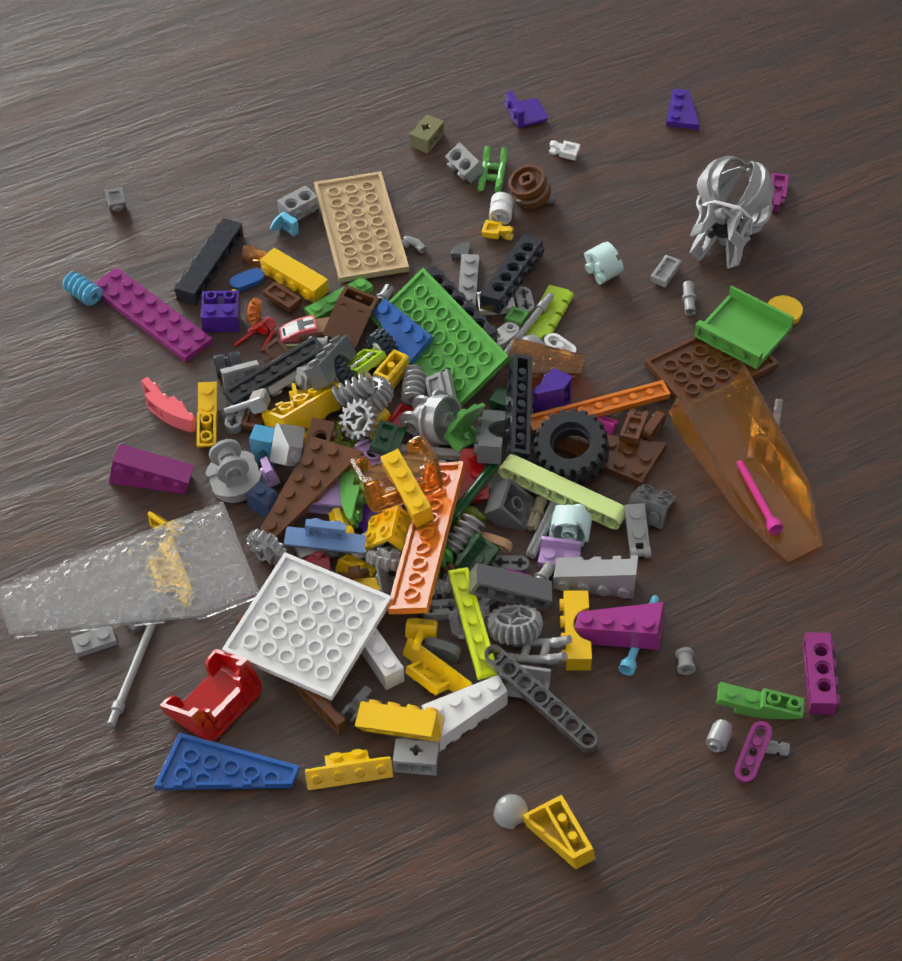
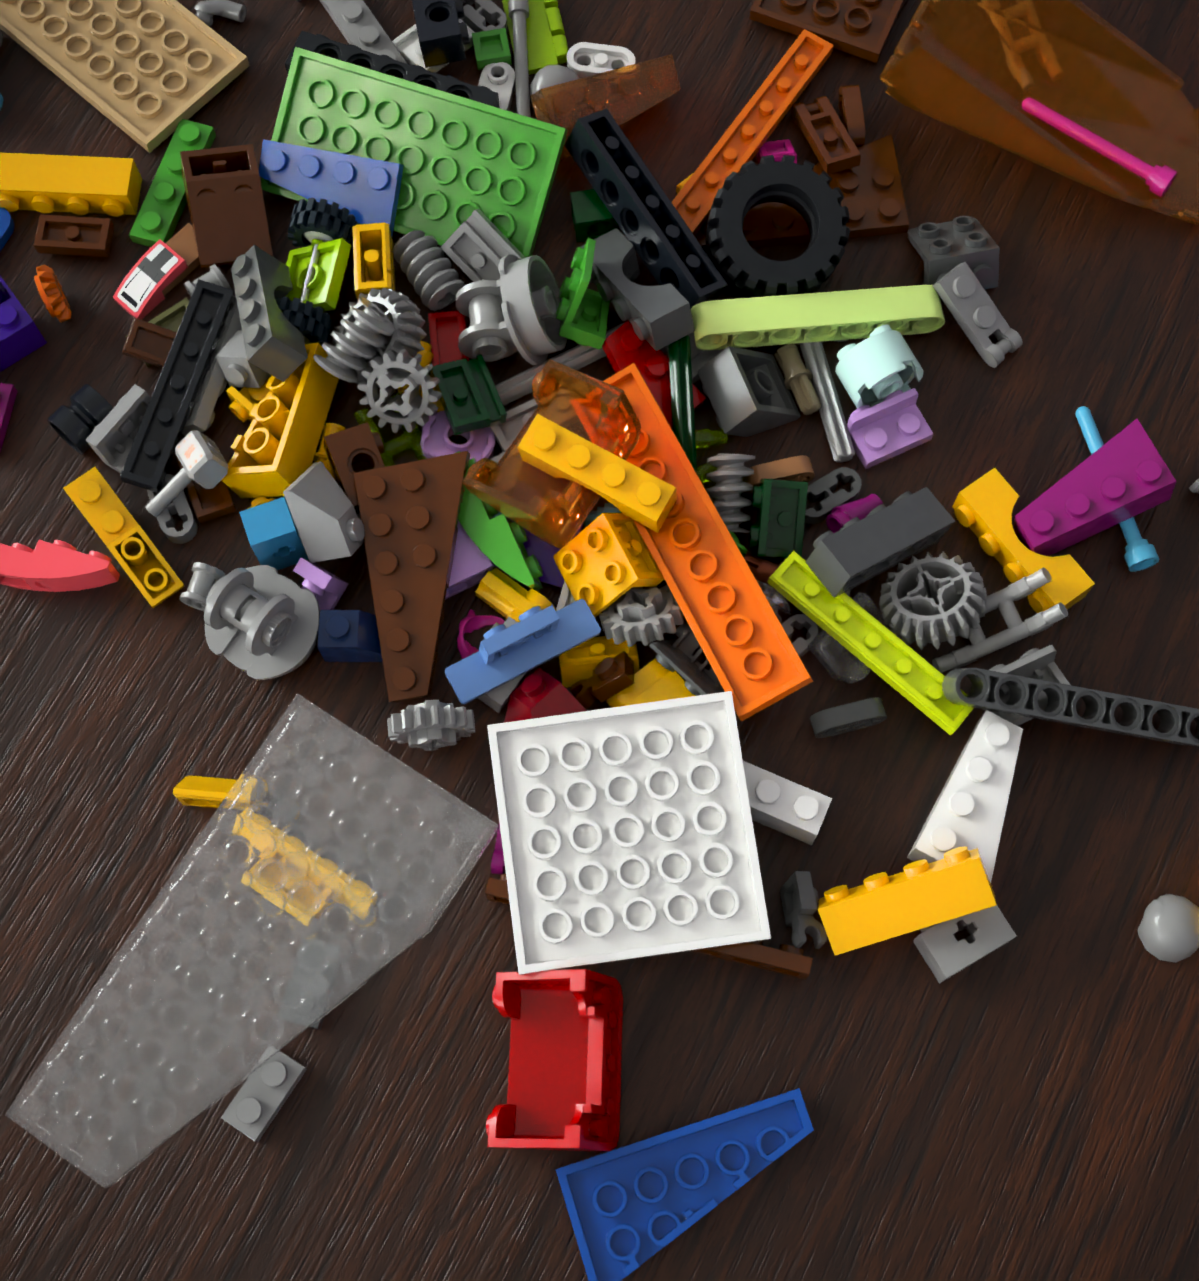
camera: 35 degrees left, 20 degrees up
(118, 706) = (408, 1189): light grey bar -> none
(149, 470) = (109, 707): magenta wedge -> none
(265, 327) = (89, 310): red plant -> none
(348, 769) = (872, 1033): yellow bracket -> none
(385, 293) = (246, 130): light grey pin -> none
(419, 630) = (798, 710): yellow piece -> none
(432, 671) = (867, 768): yellow bracket -> none
(546, 571) = (893, 476): light grey pin -> none
(553, 391) = (667, 144): dark purple slope -> none
(597, 576) = (983, 431): light grey wedge -> none

